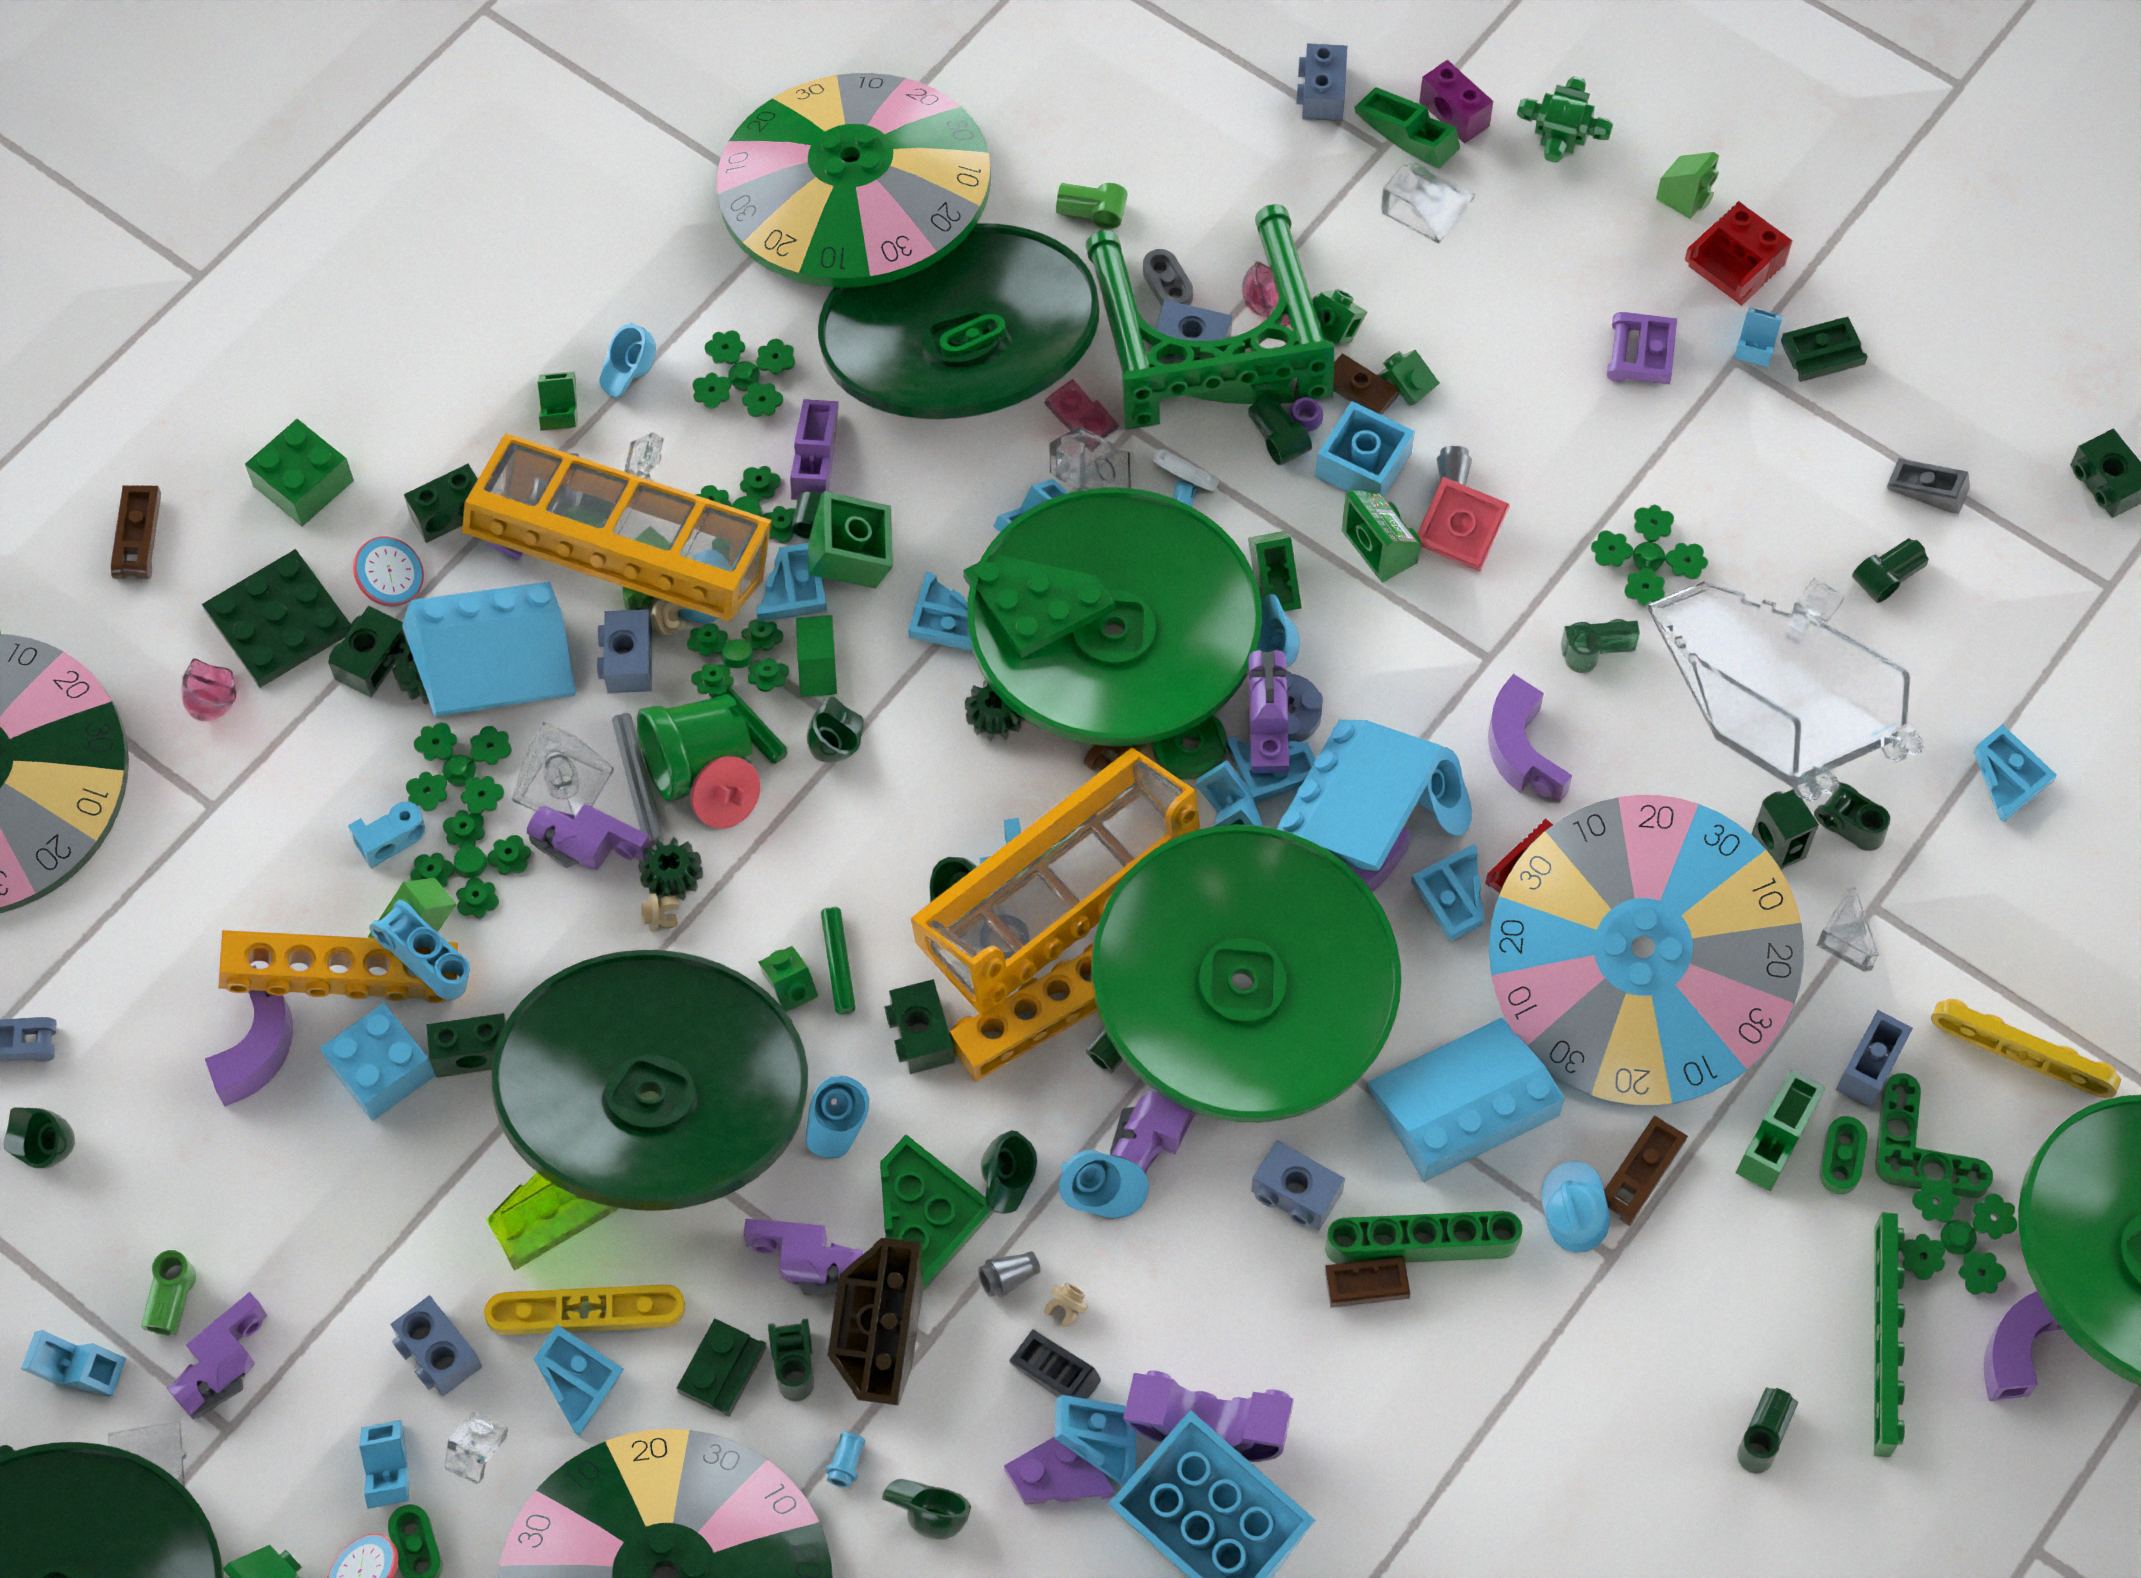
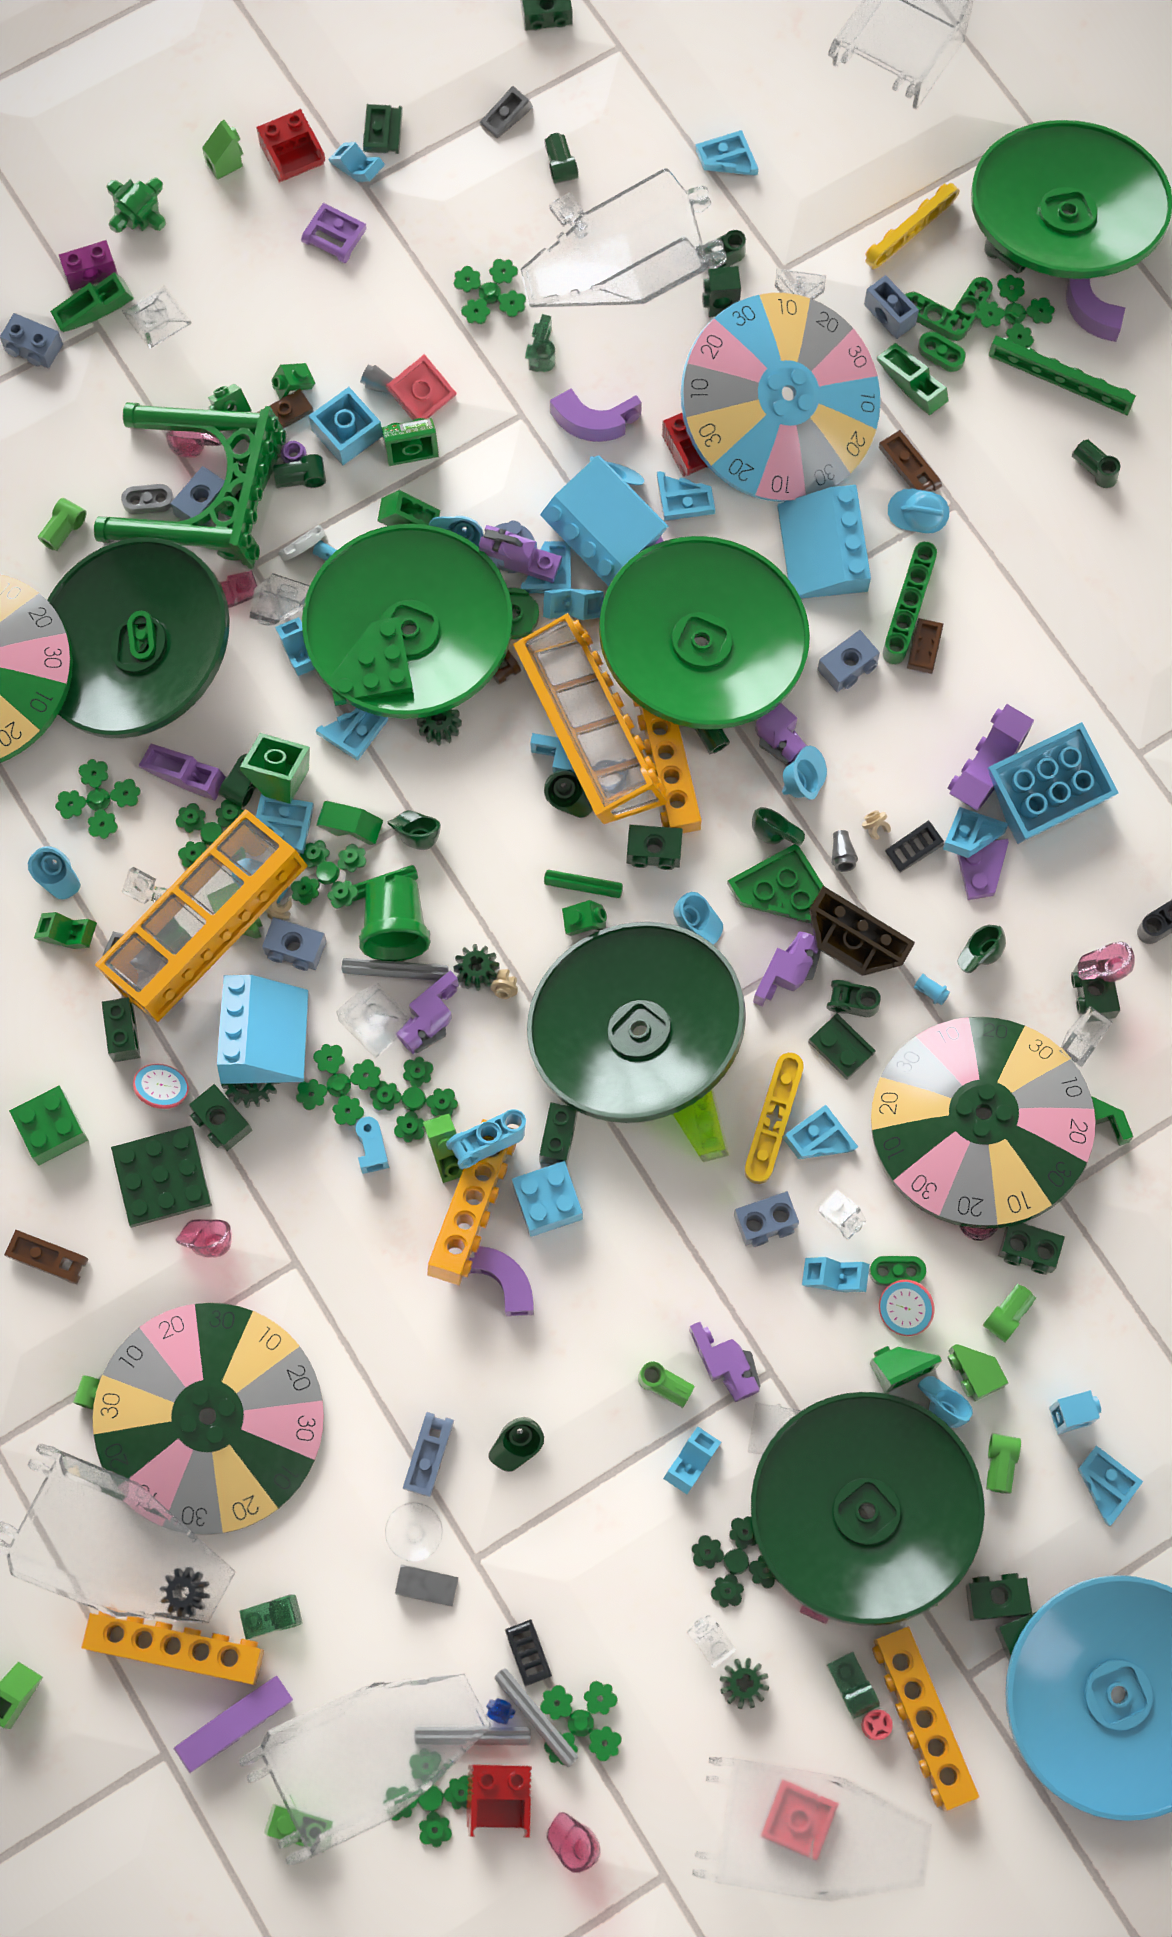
camera: 70 degrees left, 10 degrees up
(725, 792) = (436, 911): coral piece -> none

